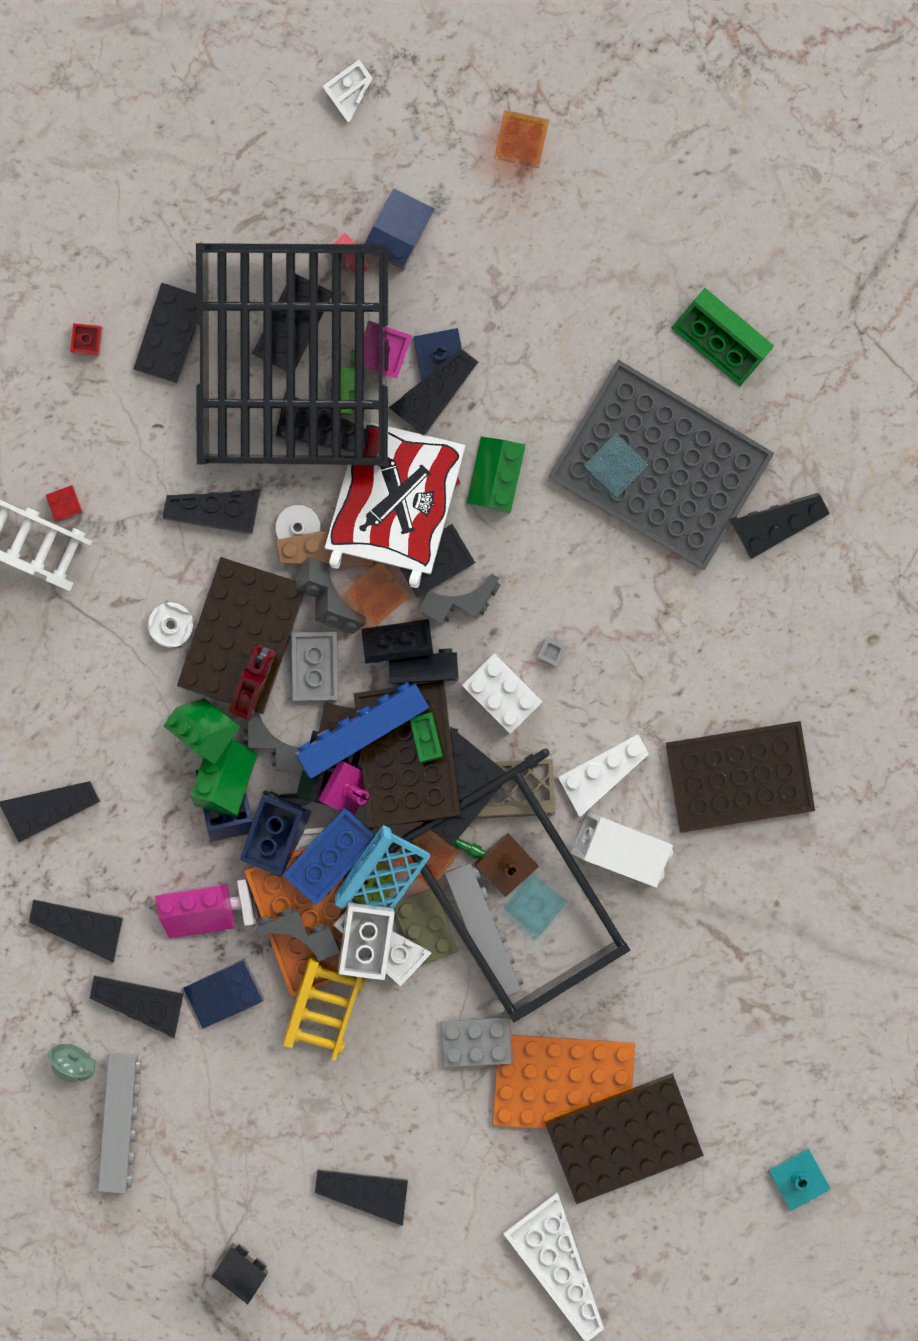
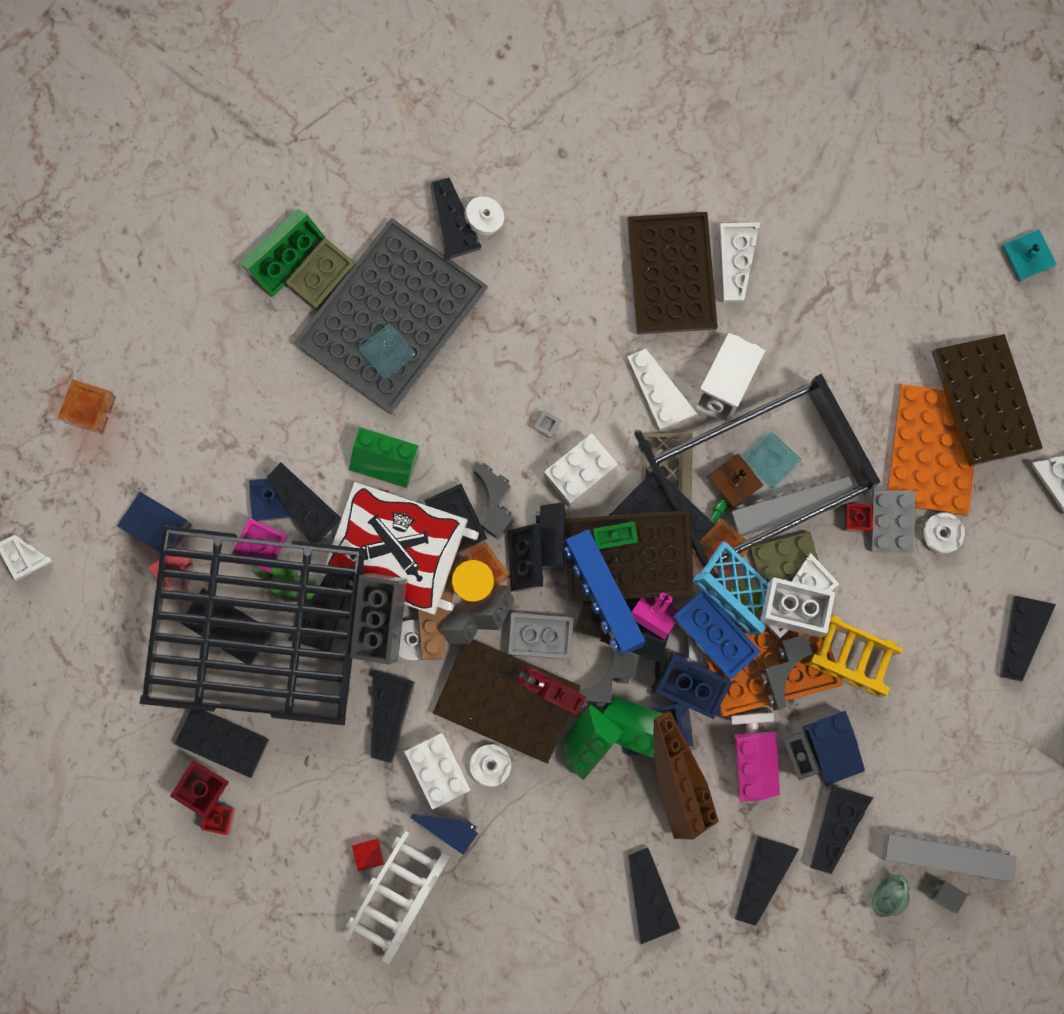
camera: 85 degrees left, 10 degrees down
(78, 1124) = (948, 896): none -> dark grey brick
(96, 588) = (453, 832): none -> dark blue slope
(115, 317) = (199, 788): none -> dark red slope
(158, 569) = (437, 771): none -> white brick
(169, 830) = (681, 781): none -> reddish brown wedge
(211, 958) = (802, 755): none -> dark grey brick
(314, 488) = (378, 618): none -> dark grey brick
(364, 586) = (473, 581): none -> yellow tile
(473, 1110) = (954, 533): none -> white plate
(478, 1004) = (858, 517): none -> red piece
(702, 380) = (320, 273): none -> olive plate
(770, 848) = (737, 252): none -> white wing
(782, 548) = (478, 221): none -> white plate

